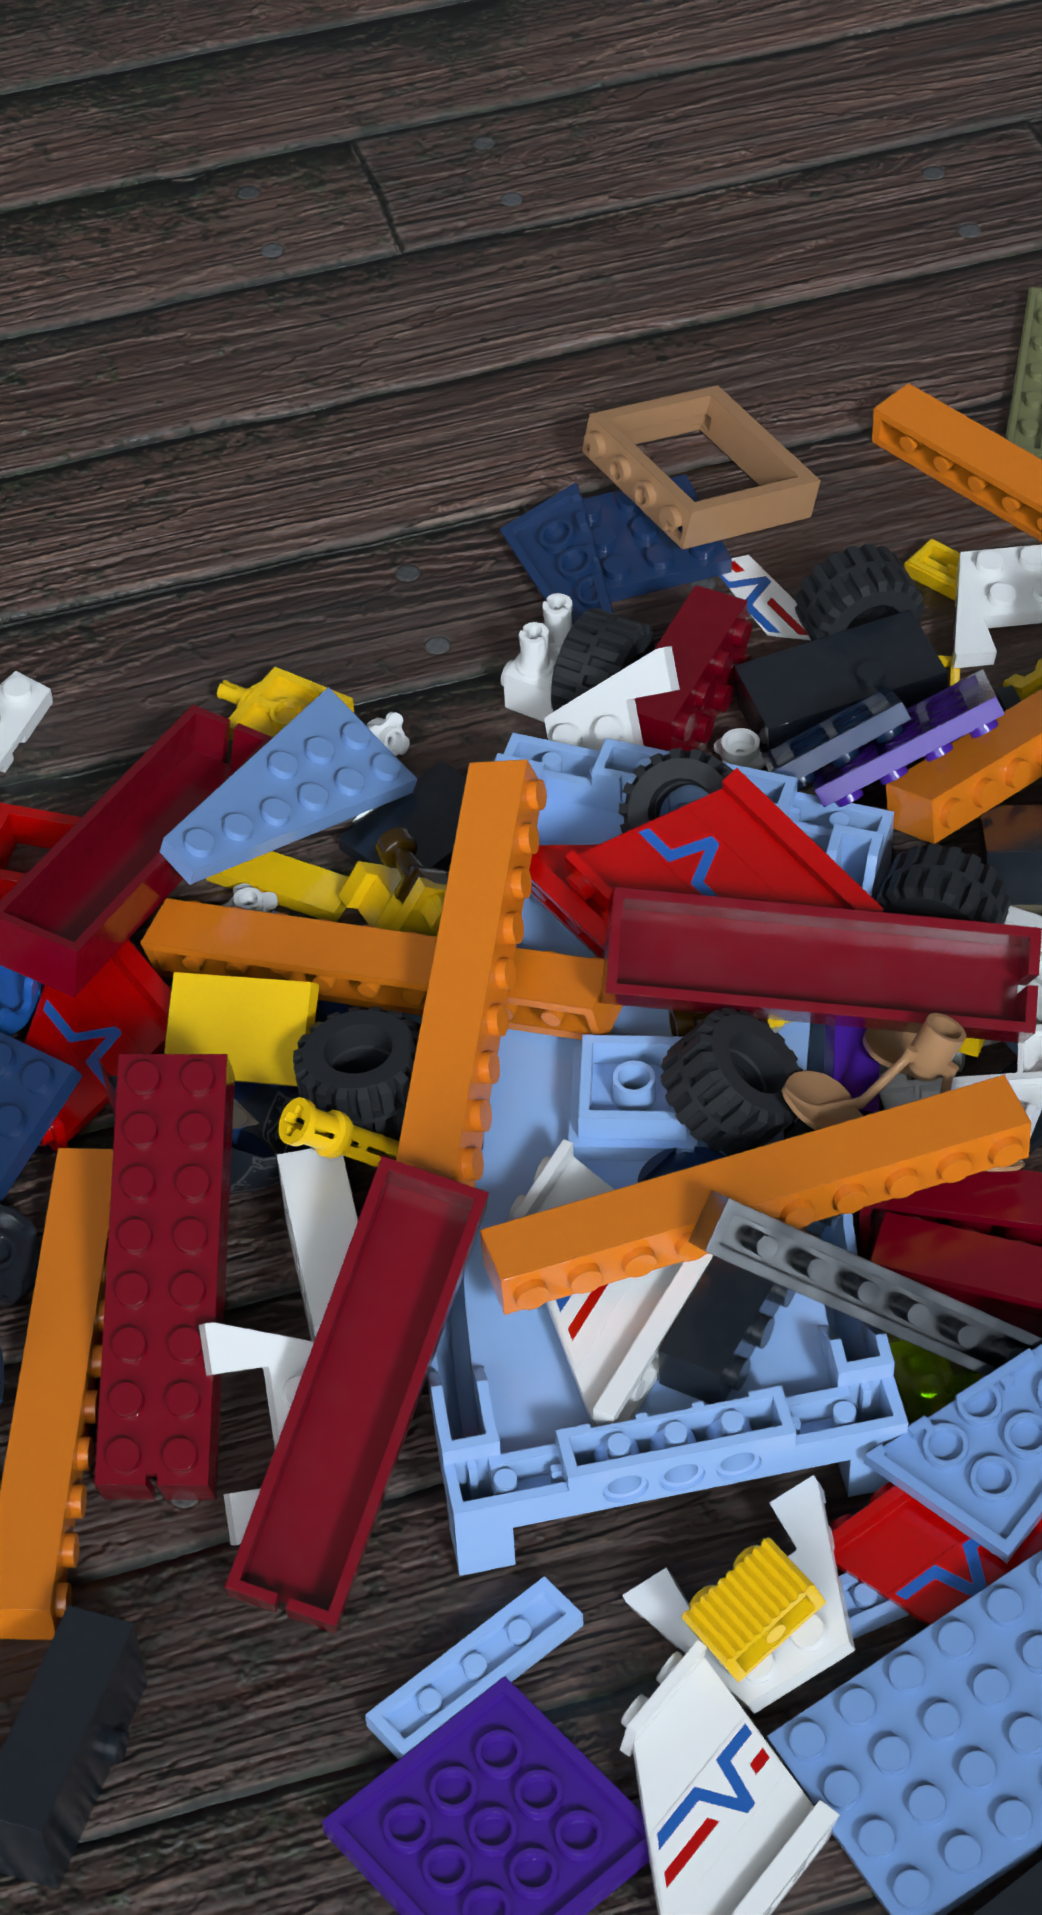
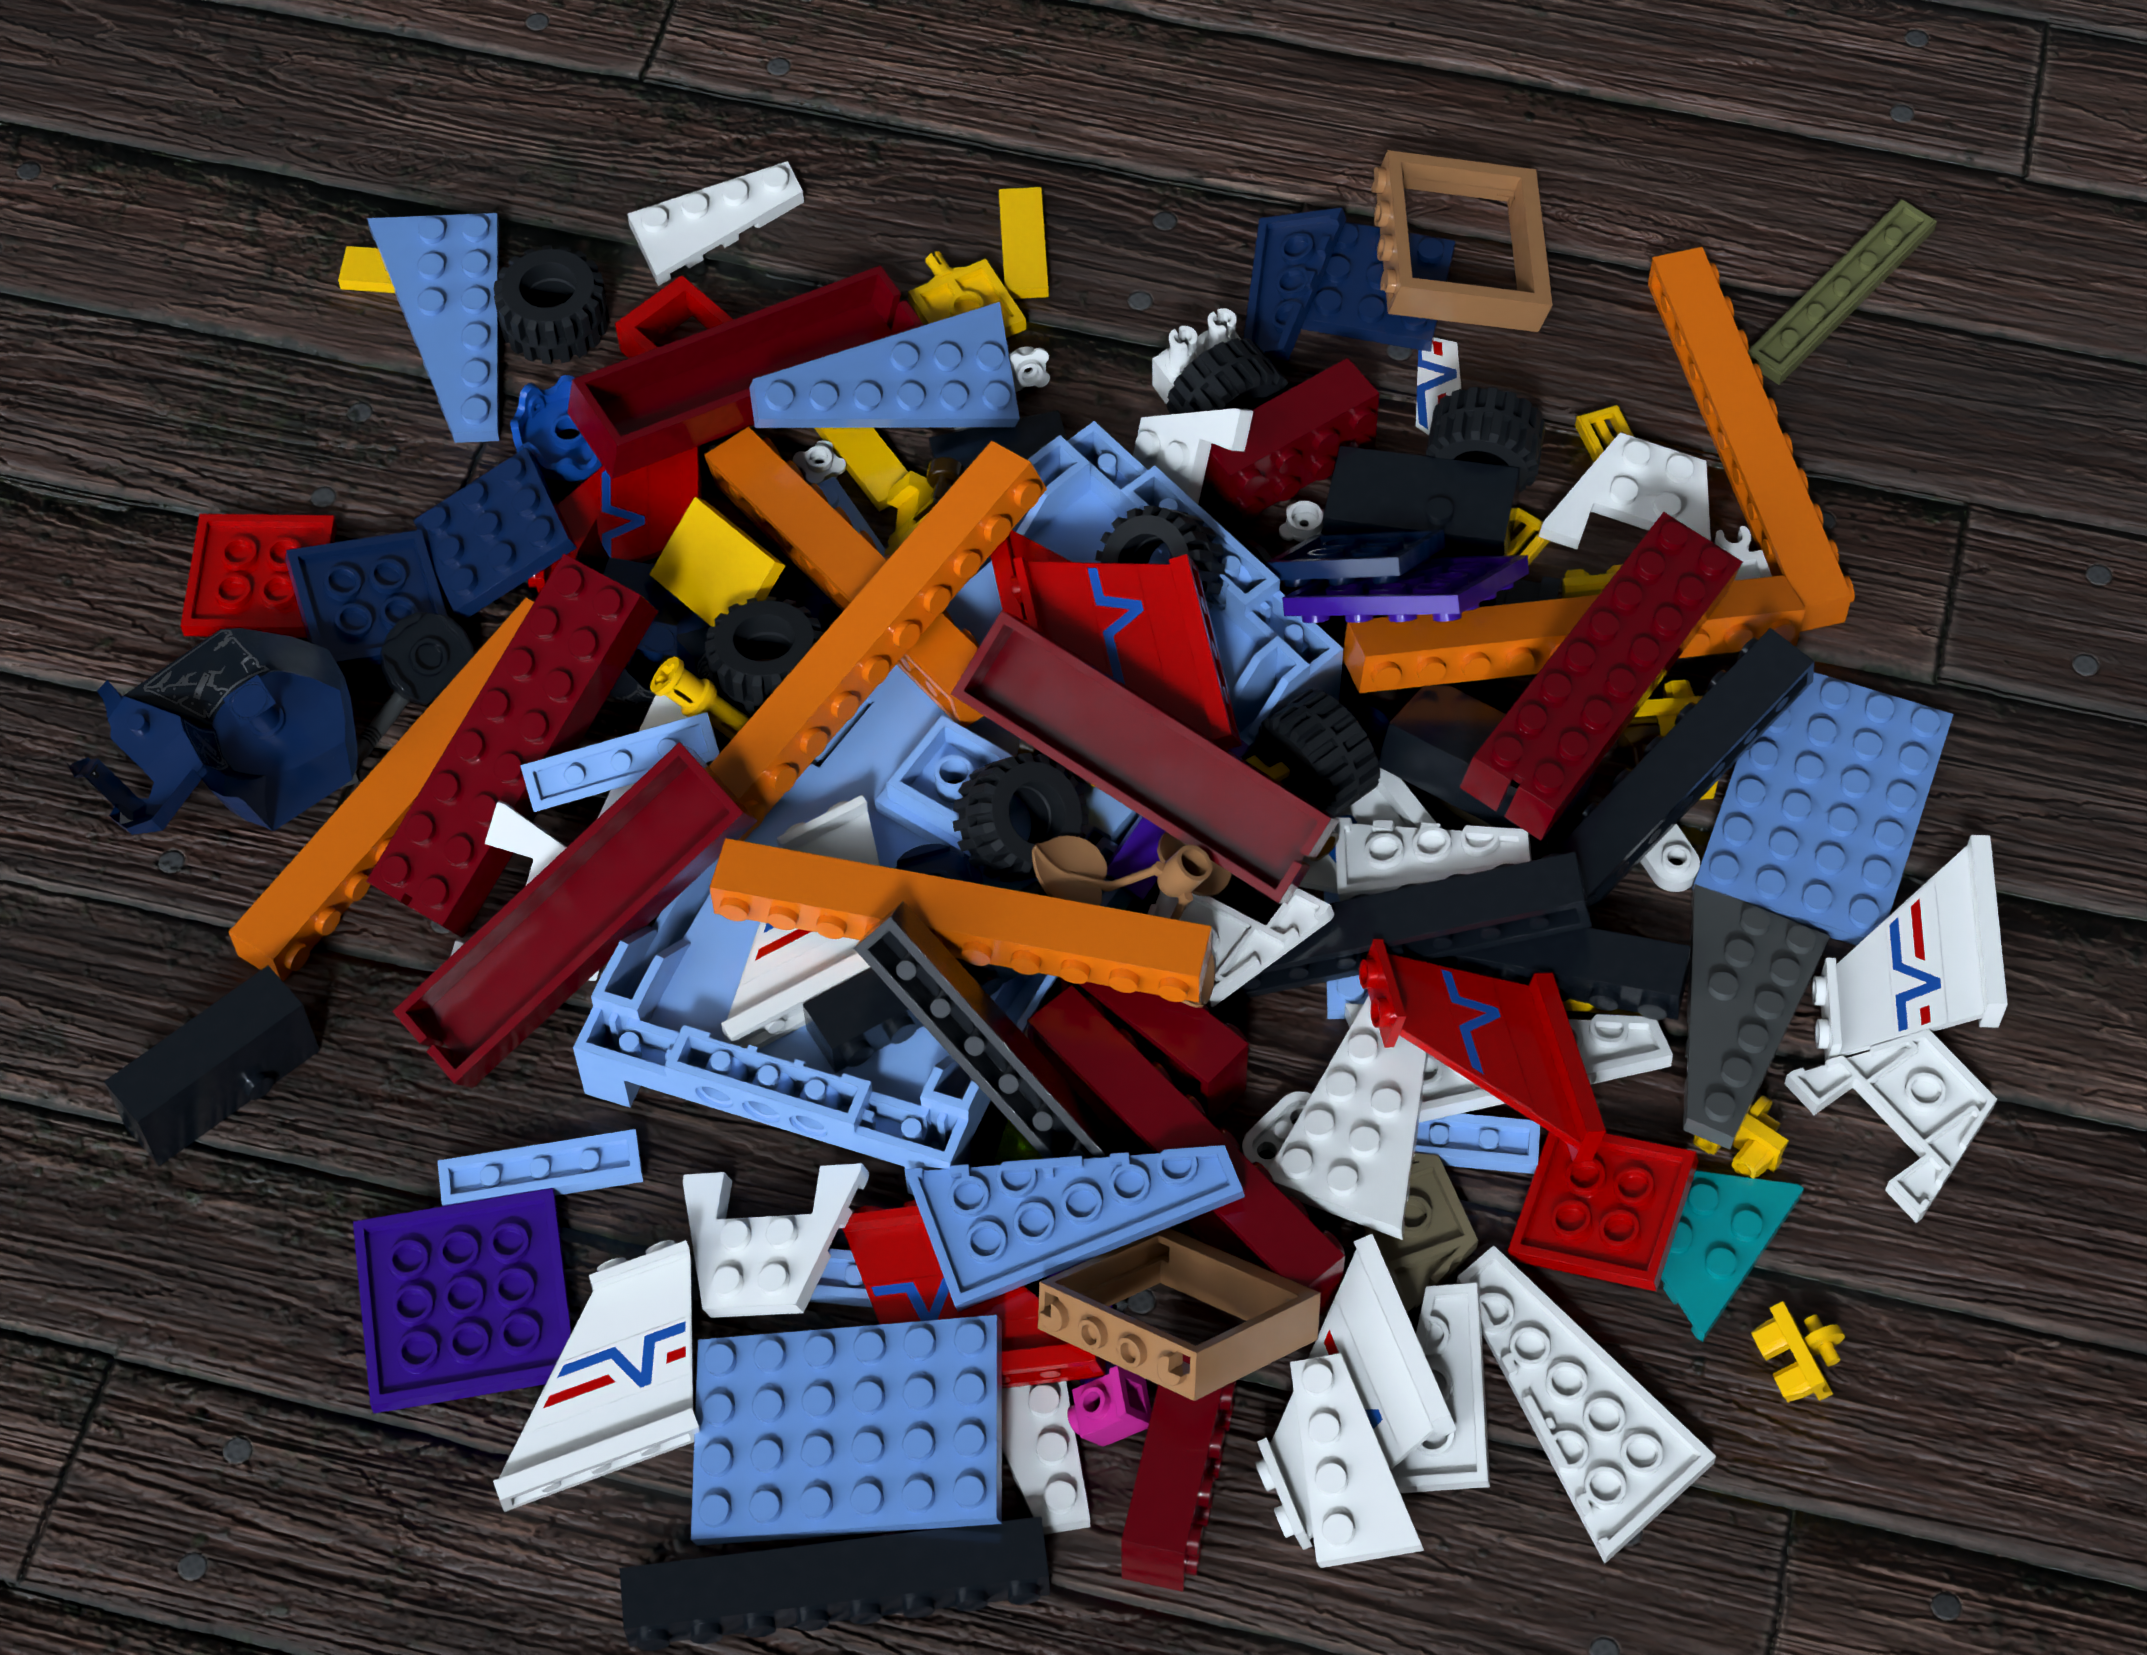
camera: 30 degrees right, 10 degrees up
(293, 640) = (1023, 242): none -> yellow tile
(294, 1231) = (613, 761): none -> light blue plate
(752, 1608) = (739, 1240): yellow brick -> none

